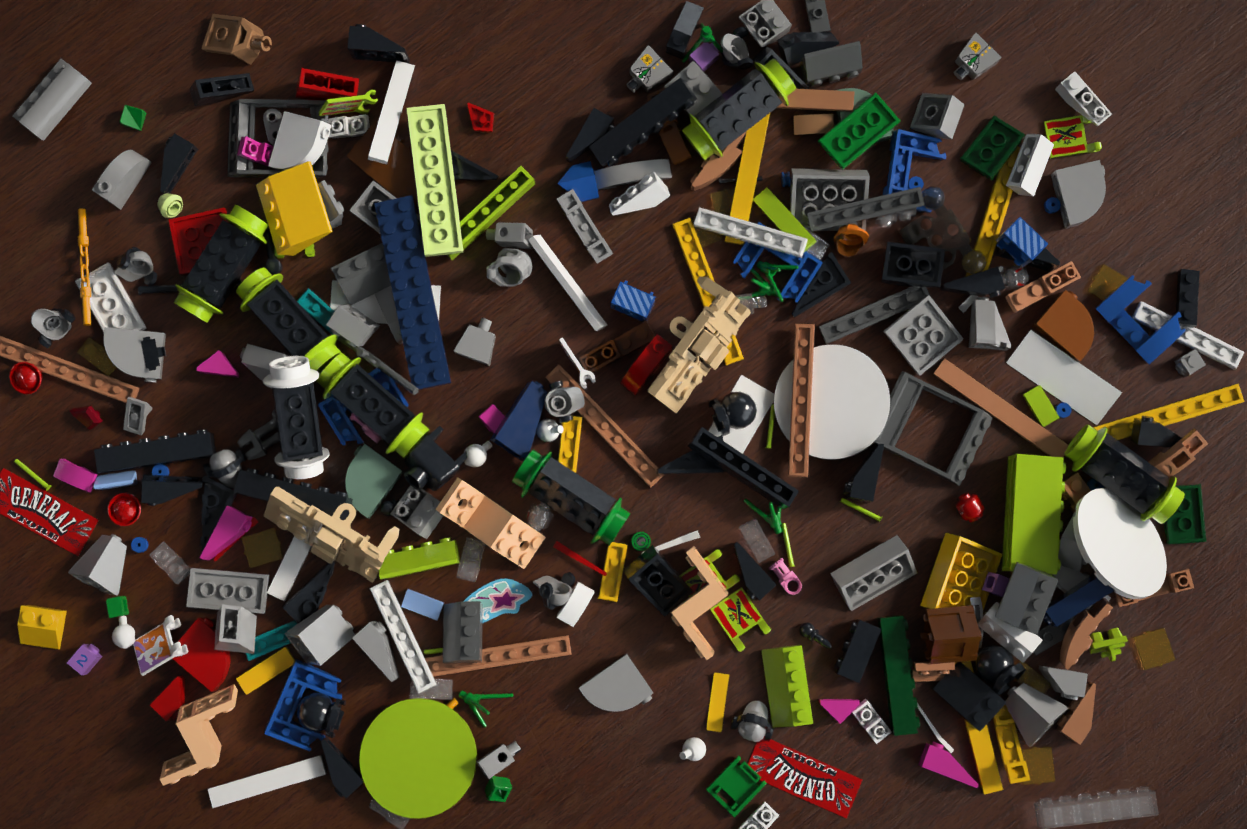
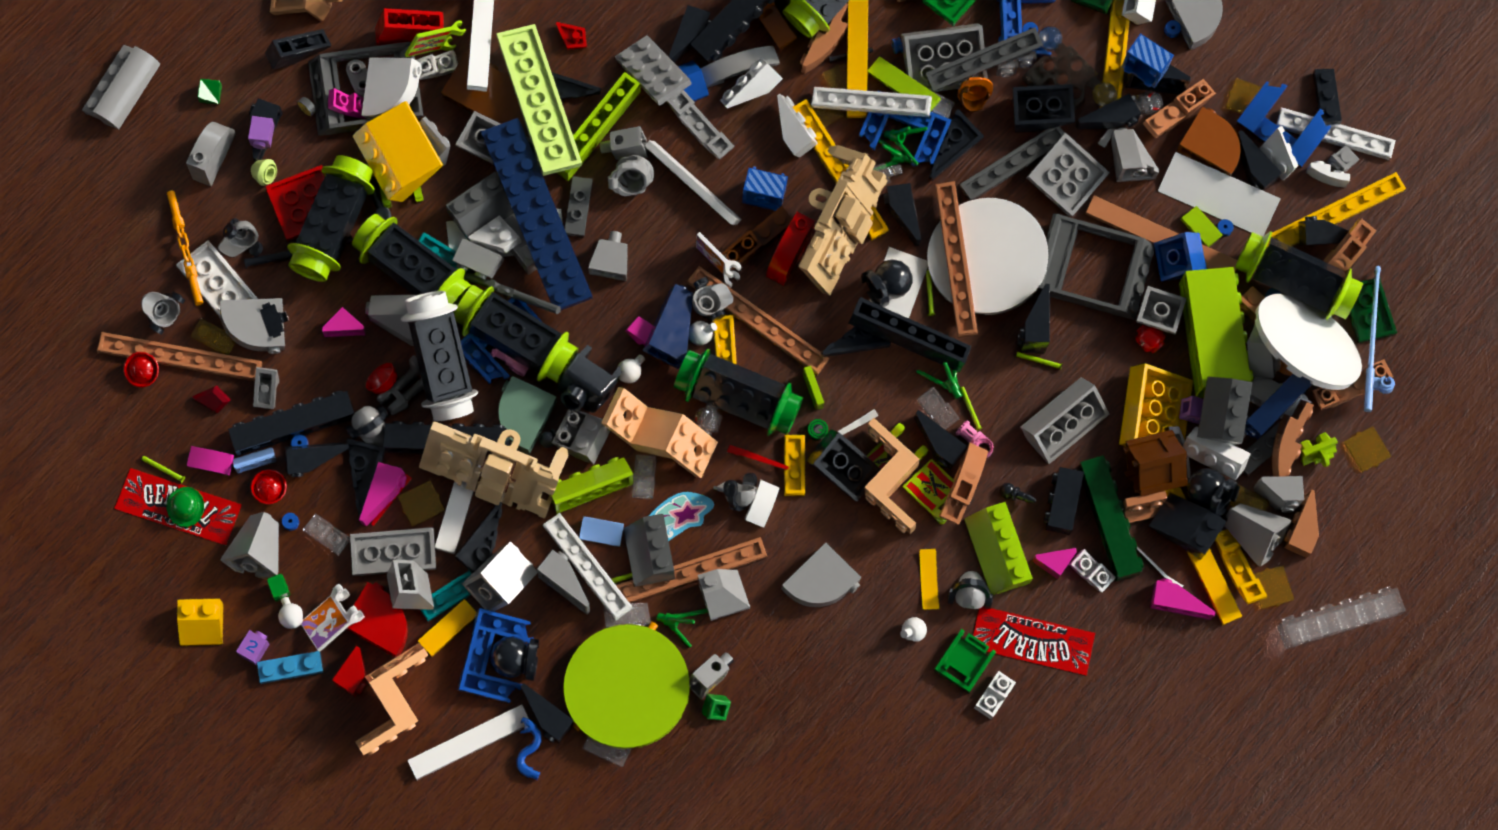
camera: 15 degrees left, 10 degrees down
(46, 514) = (185, 506): none -> green hat
(116, 682) = (290, 667): none -> dark azure plate
(169, 169) = (261, 132): none -> medium lavender brick
(220, 147) = (306, 106): none -> dark grey tile
(244, 425) = (382, 379): none -> red hat
(311, 813) = (525, 770): none -> blue animal
(374, 304) = (496, 235): none -> white wing
(457, 287) = (578, 206): none -> dark grey plate
(524, 683) = (722, 593): none -> light grey slope
(549, 167) = (653, 69): none -> light grey plate
(643, 501) = (813, 388): none -> lime tile
(672, 248) = (794, 132): none -> white slope
(760, 339) = (902, 208): none -> black slope
(768, 620) = (964, 483): none -> nougat slope
(985, 485) = (1161, 310): none -> light grey slope
(1014, 434) = (1178, 255): none -> blue slope
(1105, 355) = (1257, 166): none -> black slope
(1128, 349) = (1280, 153): none -> white wing
(1168, 373) = (1321, 172): none -> white slope
(1172, 591) = (1383, 384): none -> light blue piece

